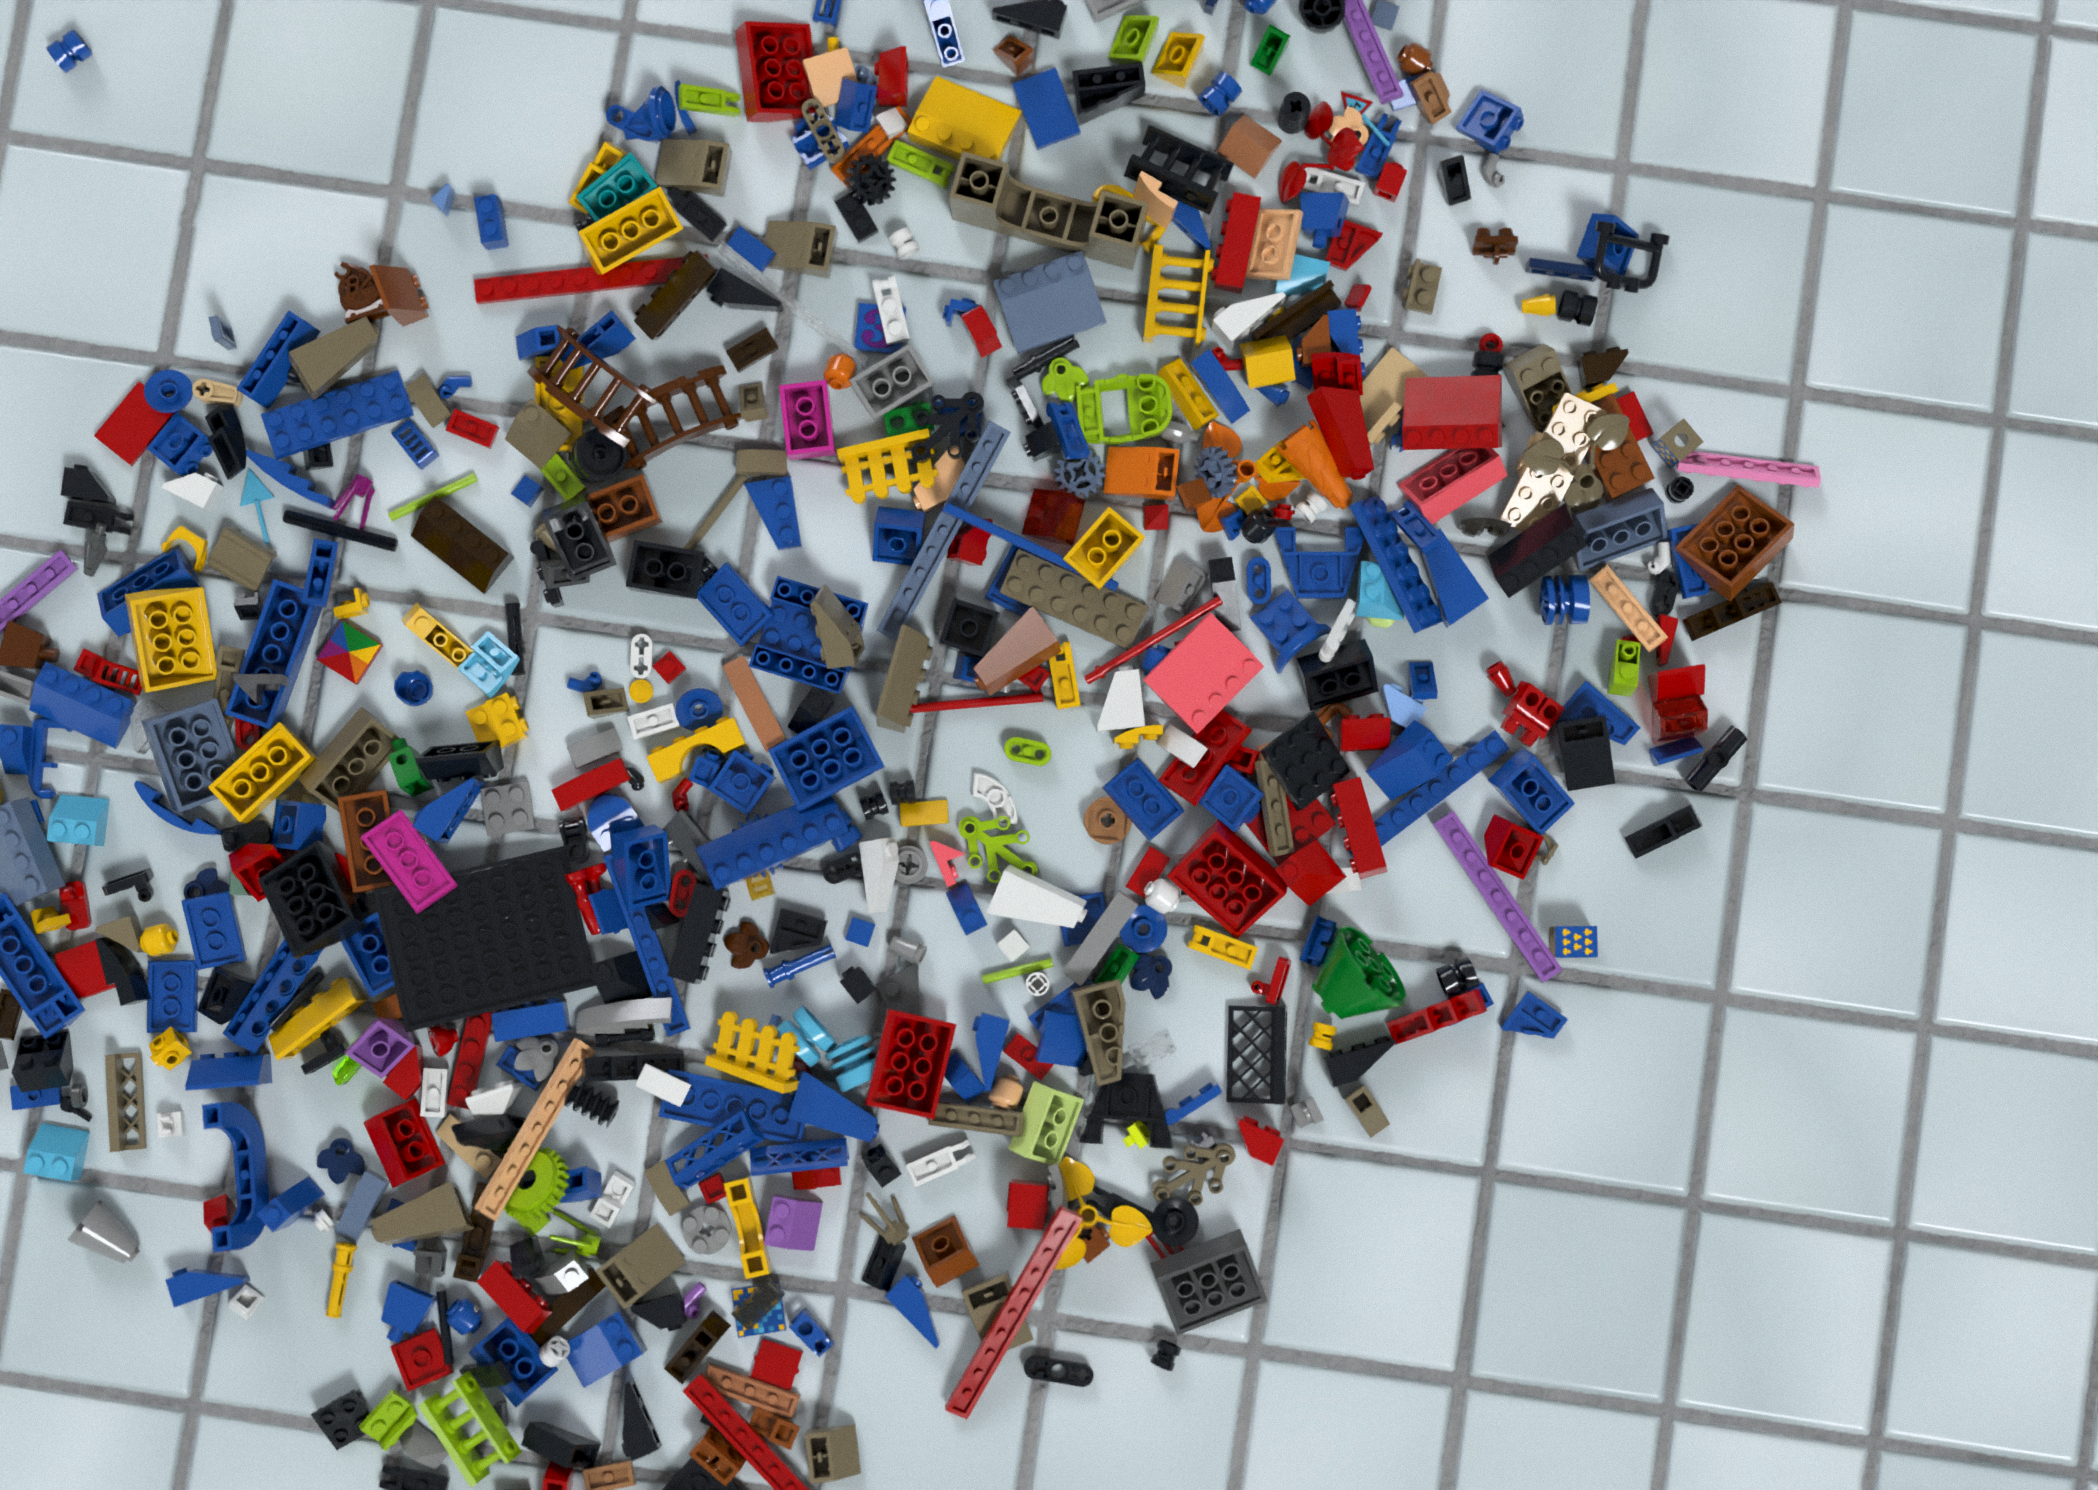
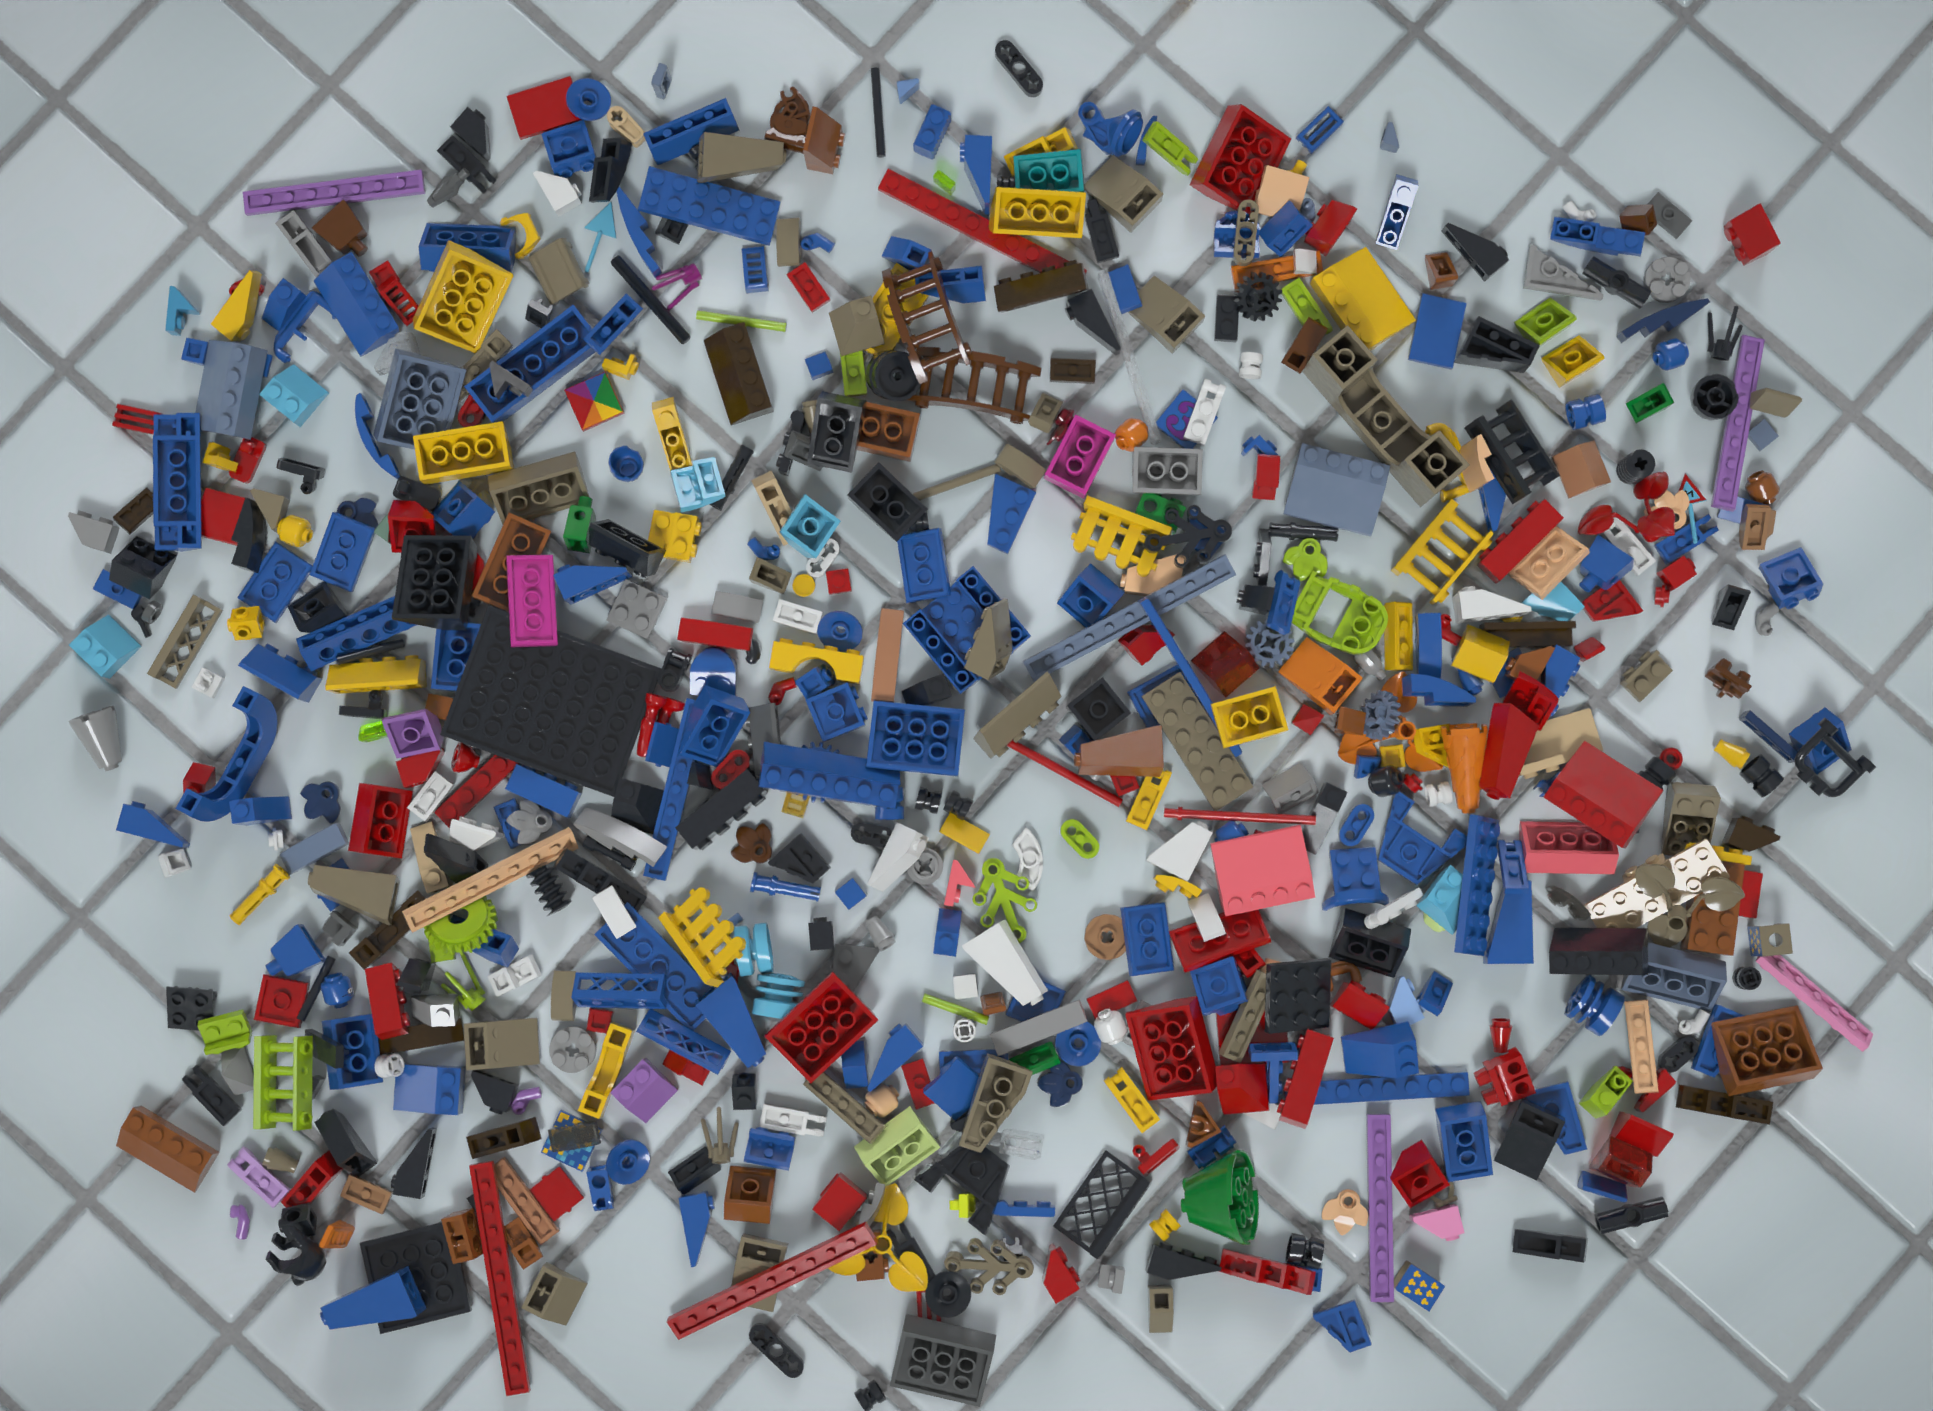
camera: 30 degrees right, 0 degrees up
(432, 236) = (878, 114): none -> black bar
(532, 259) = (944, 182): none -> clear neon green tile
(545, 218) = (977, 155): none -> blue slope
(548, 117) = (1003, 60): none -> black beam
(573, 638) = (773, 501): none -> tan slope
(611, 637) = (809, 527): none -> medium azure slope
(772, 398) = (1063, 421): none -> dark red plate
(828, 1294) = (635, 1165): none -> blue dish
(936, 1200) = (769, 1148): none -> blue bracket
(938, 195) = (1304, 345): none -> reddish brown slope
(1046, 943) = (992, 1003): none -> dark orange slope
(1250, 419) = (1436, 691): none -> blue slope
(1297, 929) = (1201, 1125): none -> dark orange slope
(1318, 825) = (1273, 1055): none -> blue bracket
(1390, 209) = (1661, 596): none -> red plate
(1472, 923) = (1345, 1215): none -> light nougat plate
(1558, 873) = (1442, 1222): none -> bright pink slope

